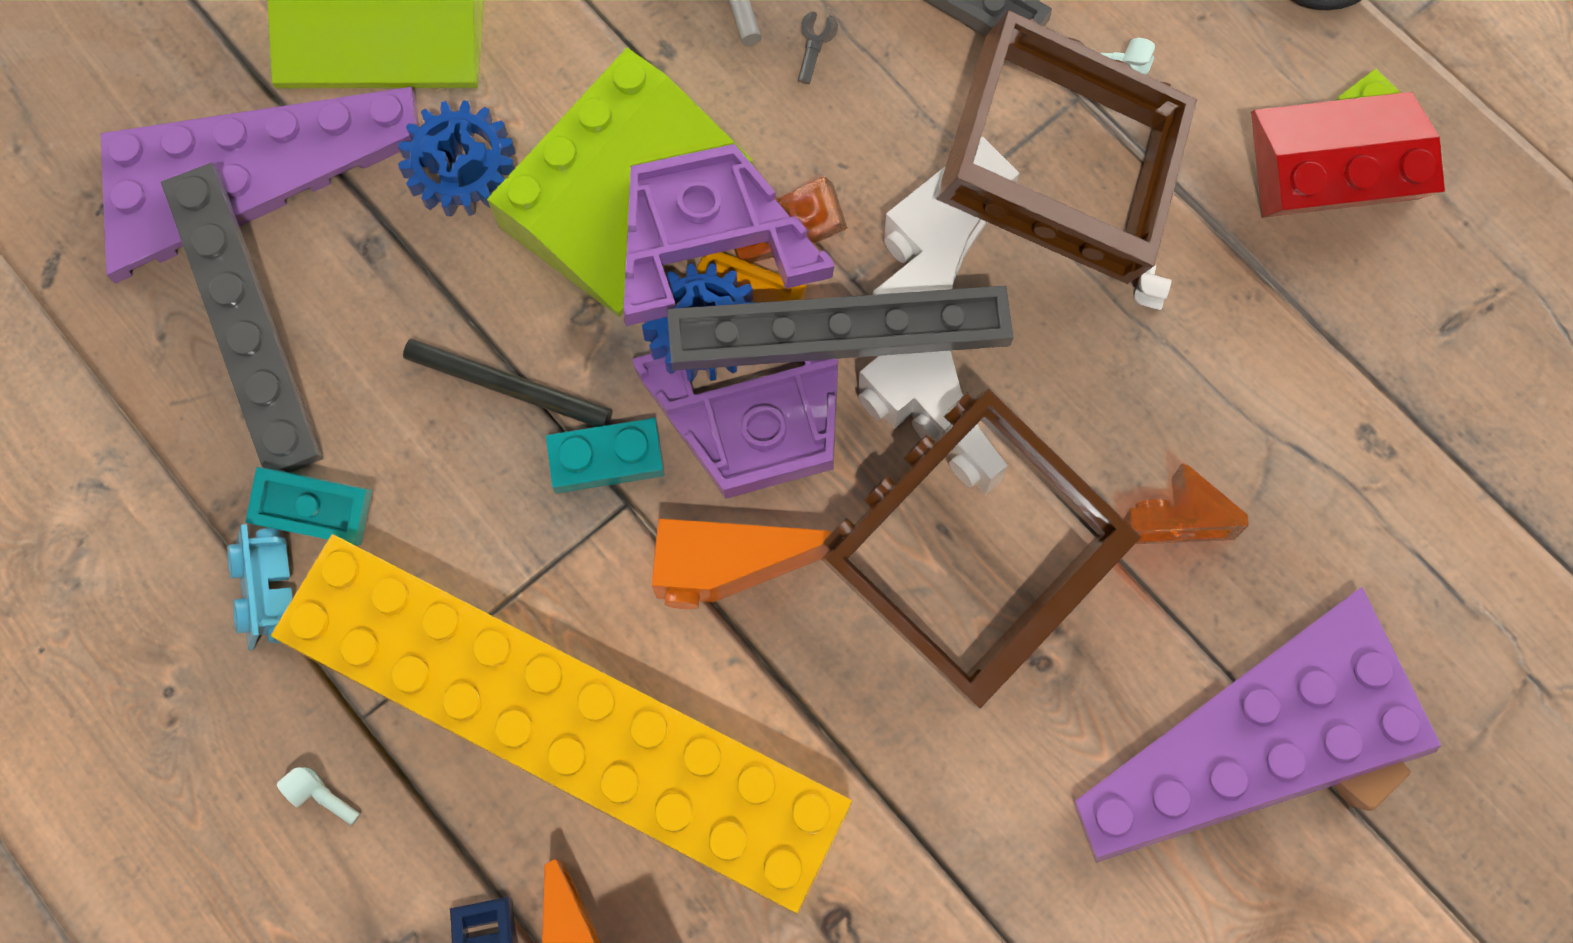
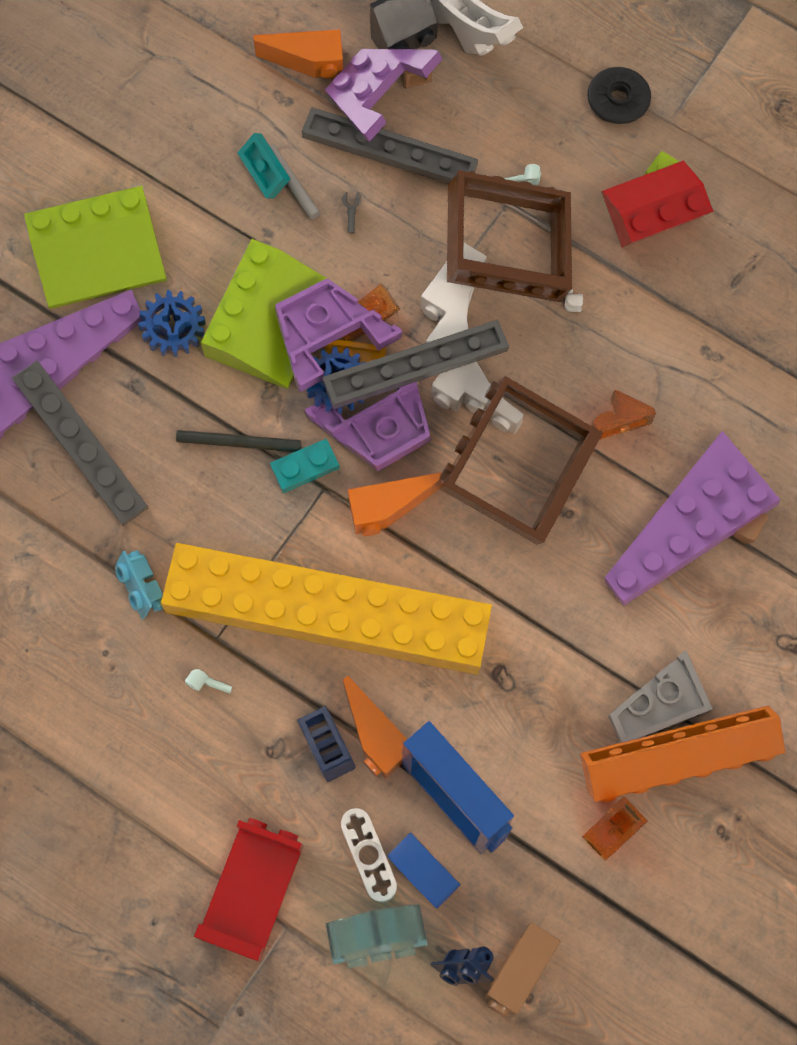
camera: 20 degrees left, 0 degrees up
(308, 505) = (152, 533): teal plate -> none

